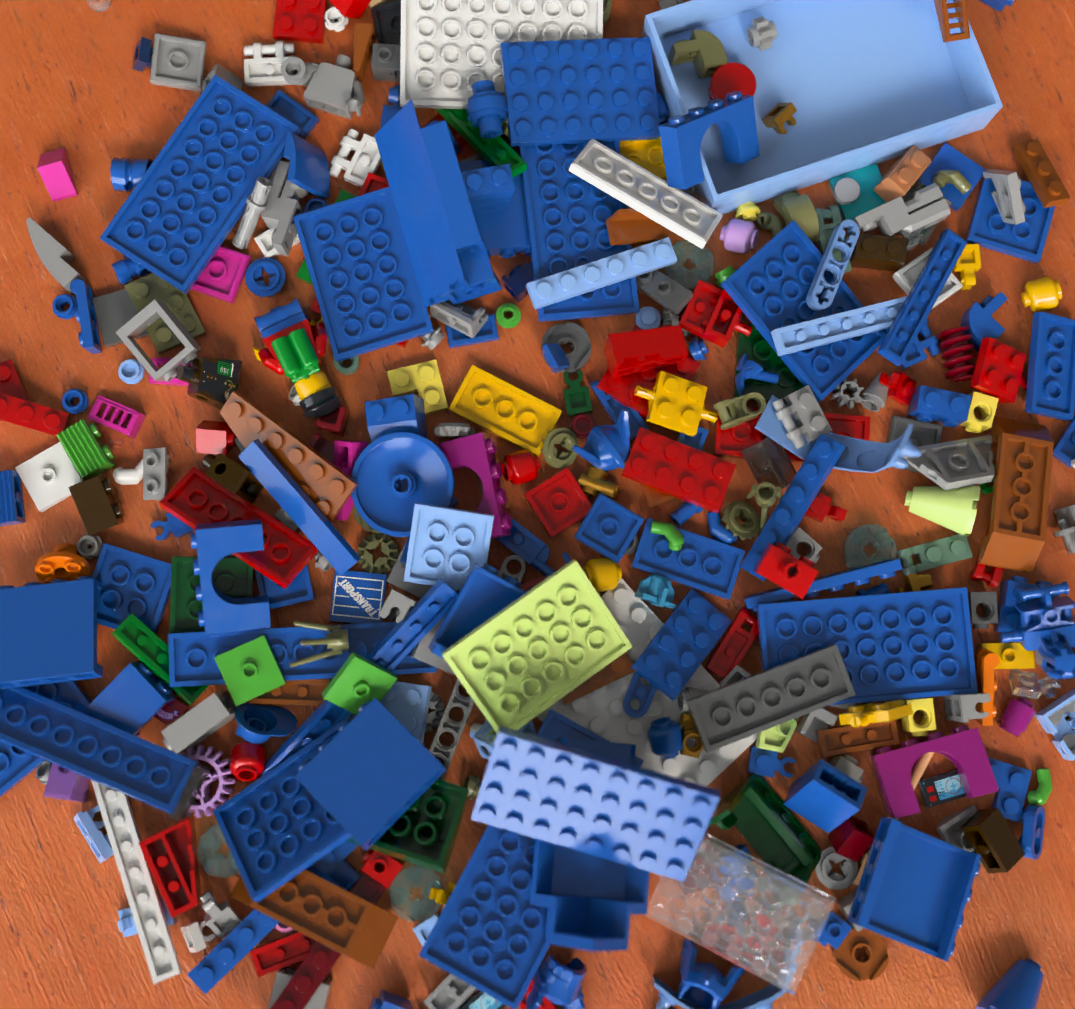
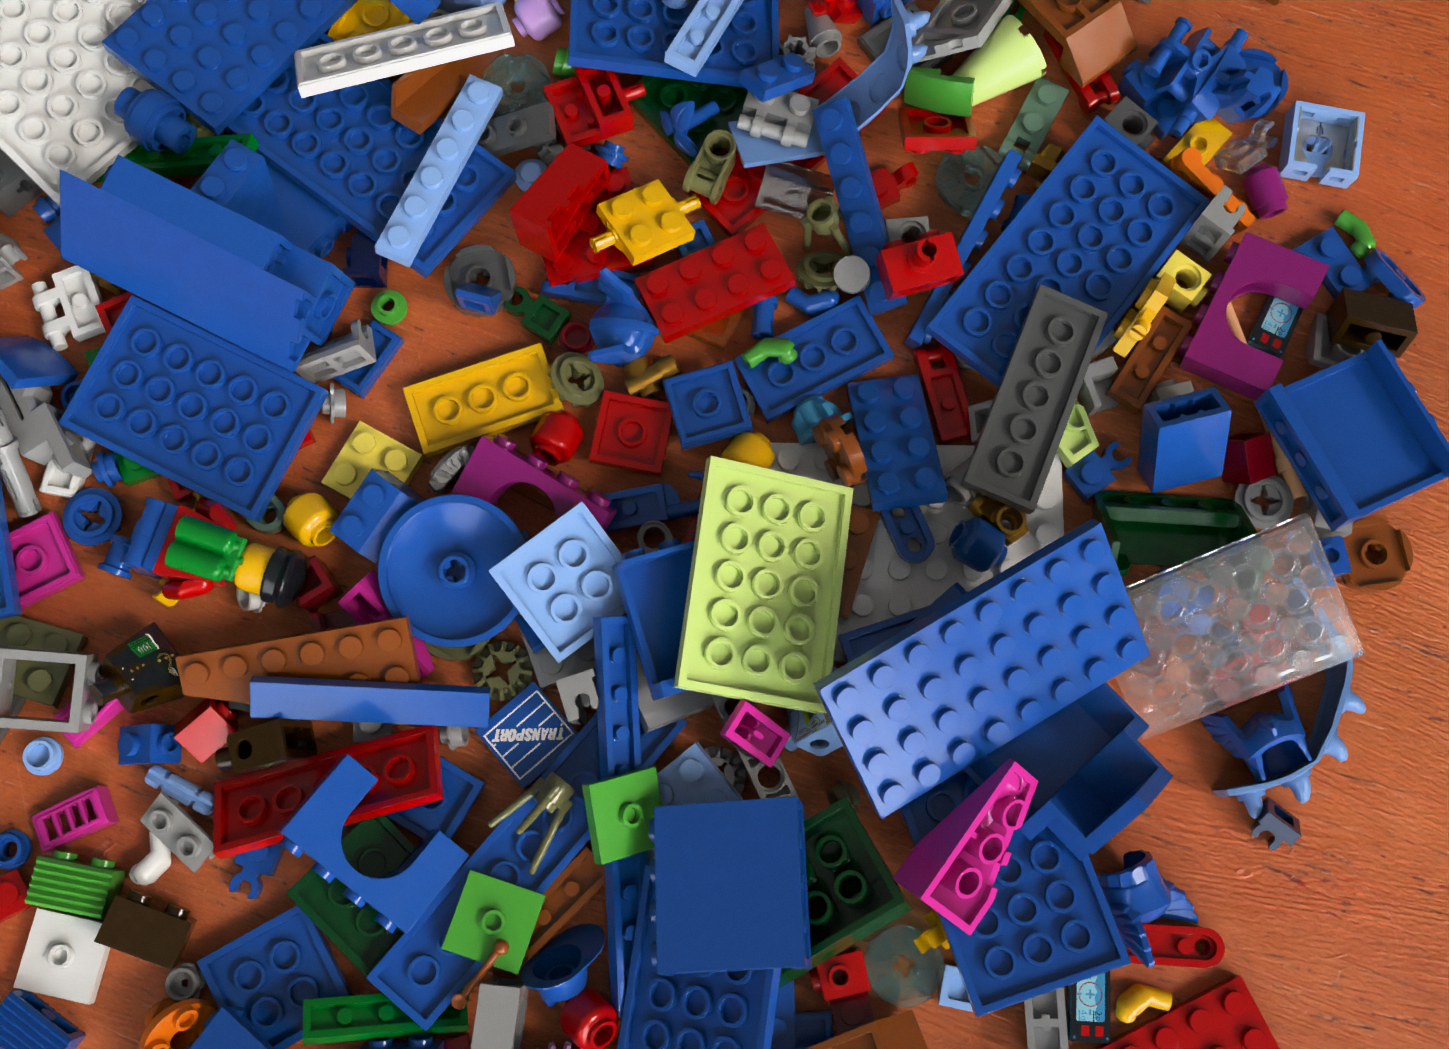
camera: 45 degrees left, 5 degrees down
(176, 453) = (180, 789): none -> light blue axle
(182, 416) = (148, 745): none -> blue bracket
(200, 689) = (461, 998): none -> dark orange hinge
(257, 309) = (112, 561): none -> blue bush
(294, 260) = (107, 468): none -> blue plate
(363, 385) = (309, 519): none -> yellow head
(459, 713) = (755, 733): none -> dark pink slope
(490, 876) = (962, 855): none -> dark pink wedge
(644, 627) = (842, 450): none -> dark orange plate
(749, 538) = (852, 274): none -> light grey tile
(821, 397) = (777, 76): none -> blue plate
(878, 507) = (931, 130): none -> red plate
(900, 490) = (939, 93): none -> bright green slope

